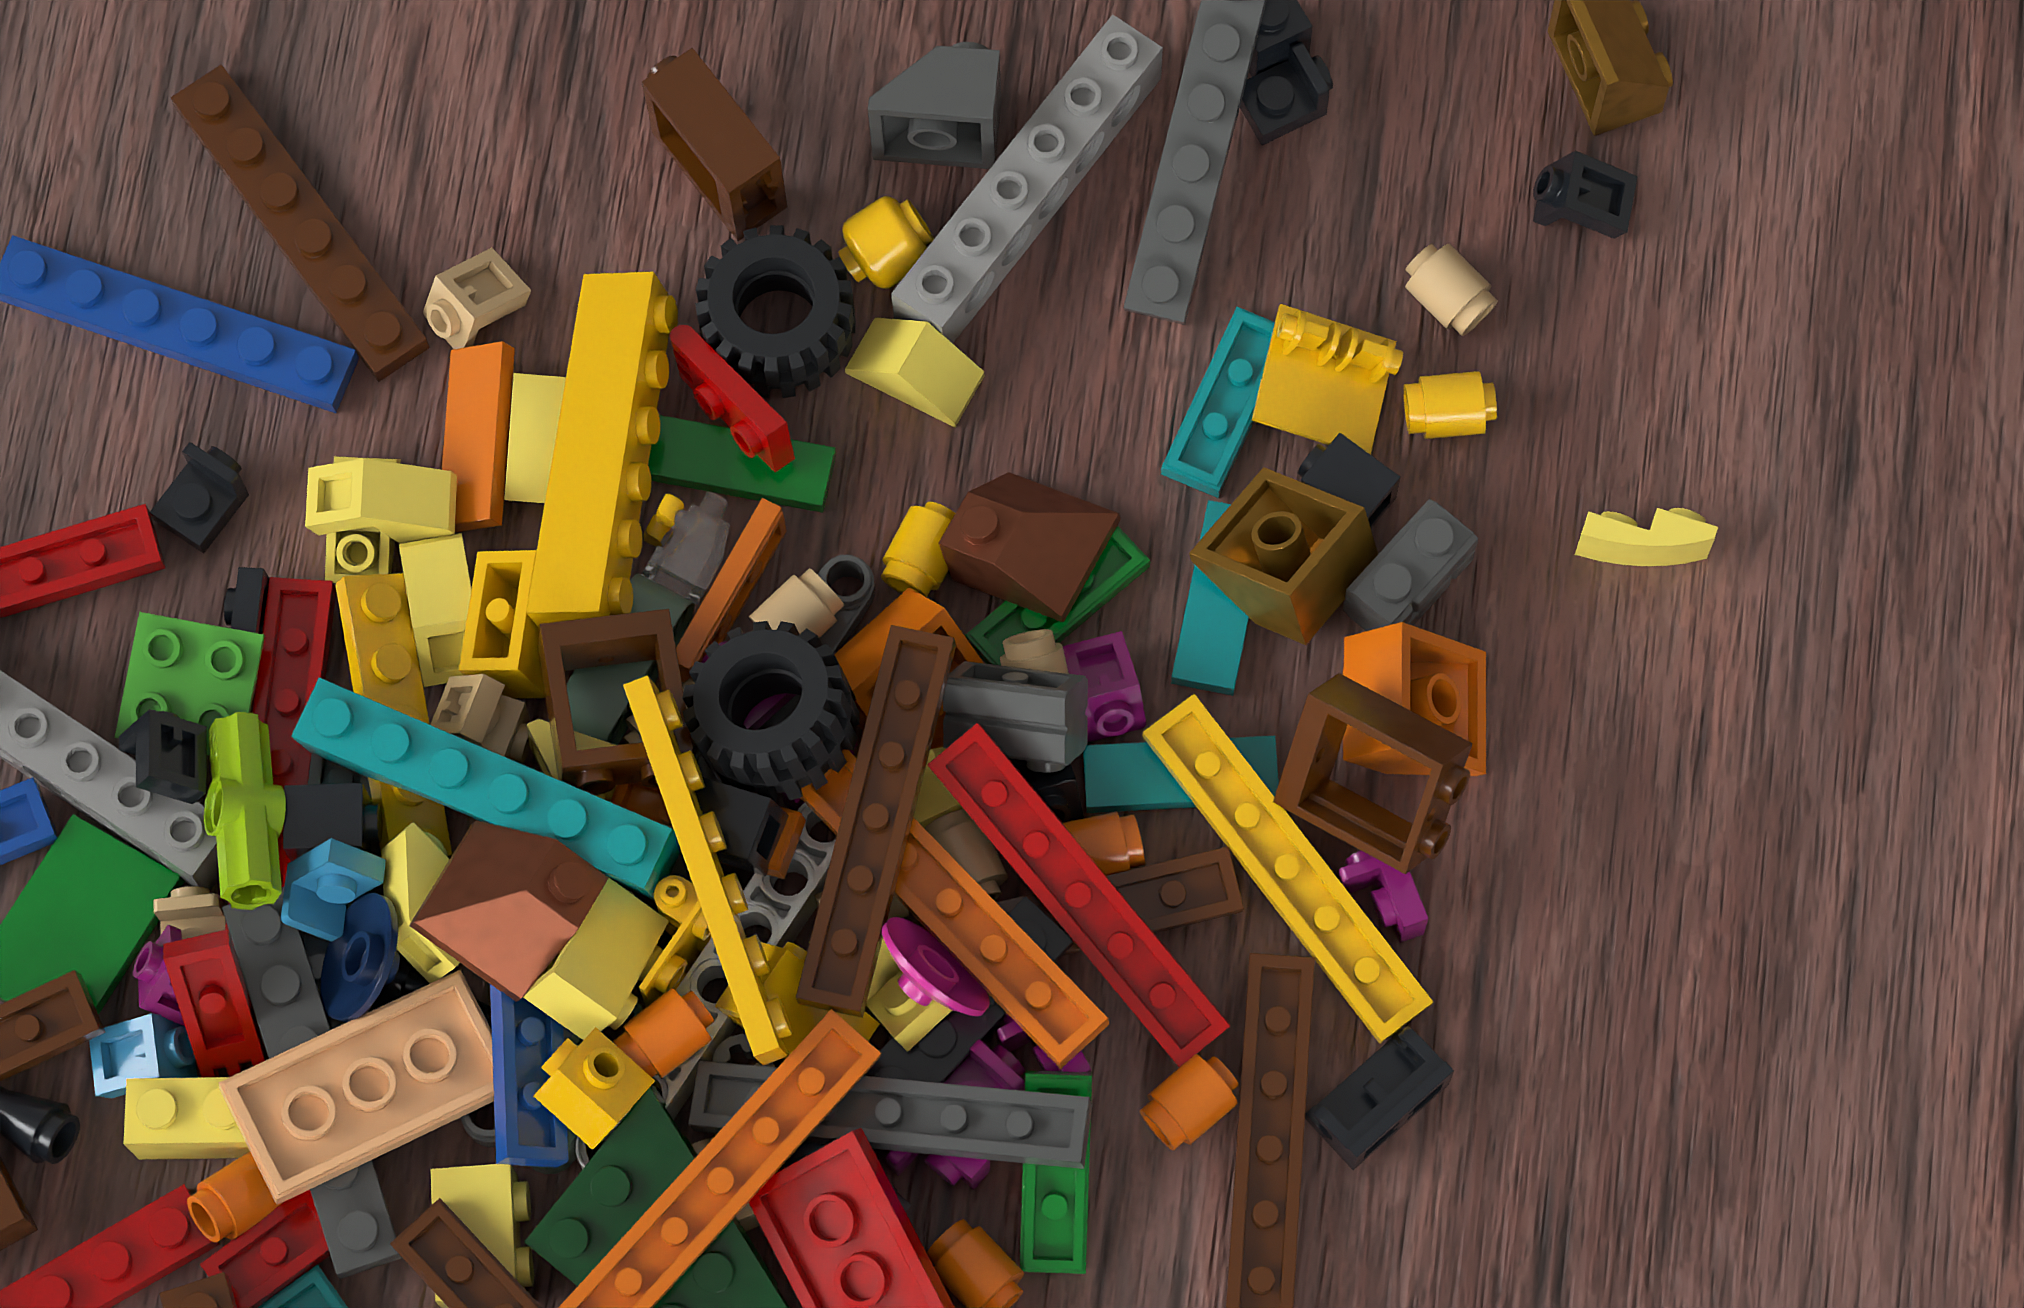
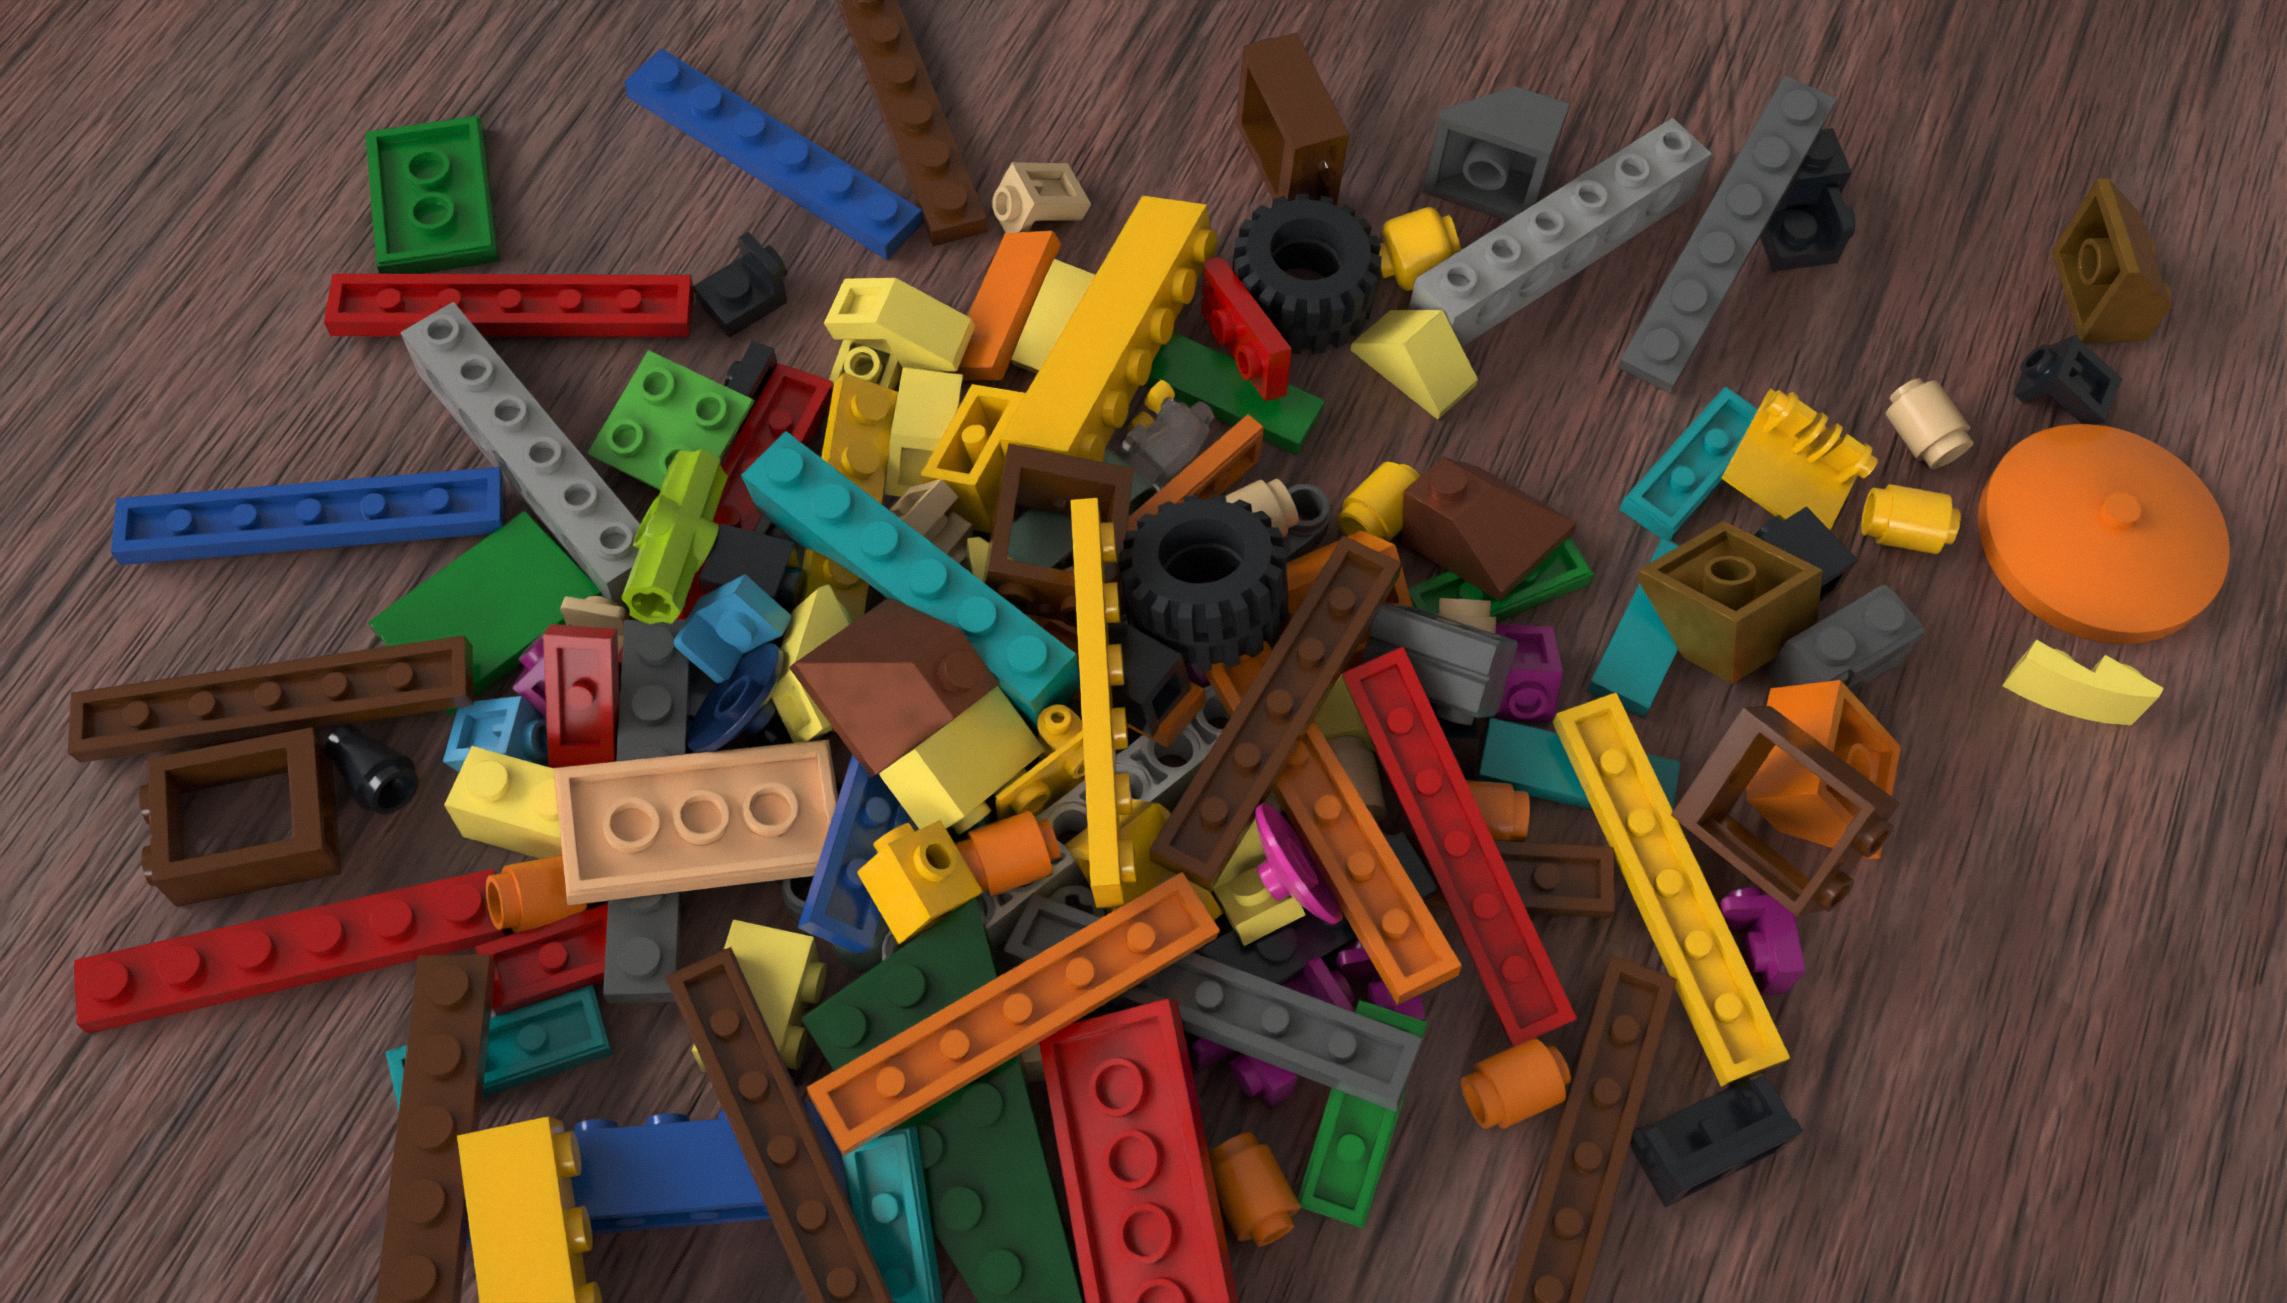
camera: 10 degrees right, 10 degrees down
(168, 755) = (624, 468): black bracket -> none
(1646, 356) = (2103, 534): none -> orange dish

